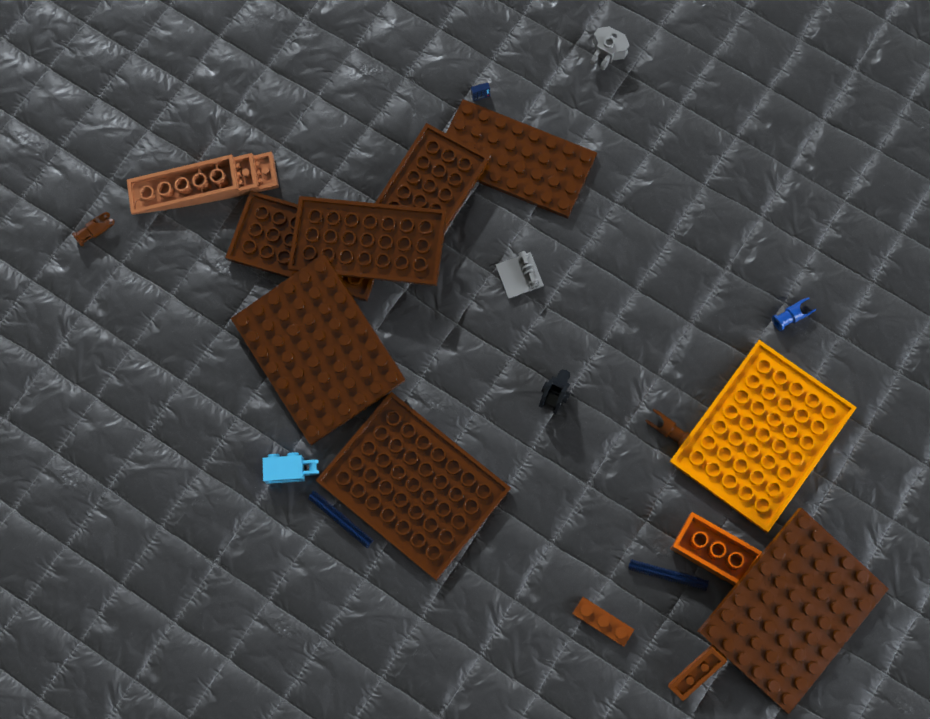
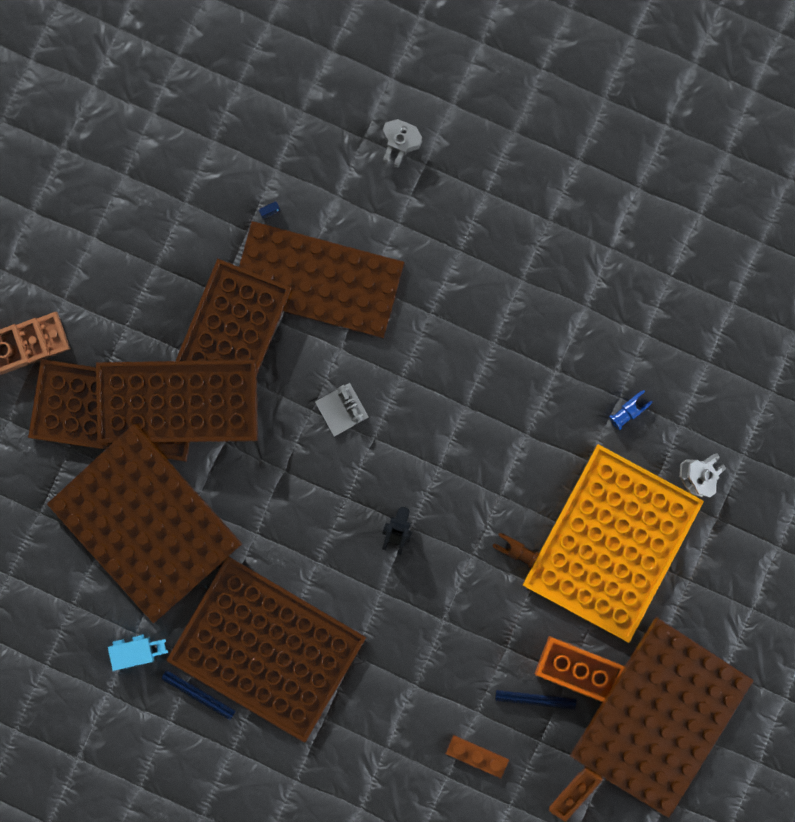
camera: 15 degrees left, 10 degrees up
(857, 381) = (701, 475): none -> light grey hinge

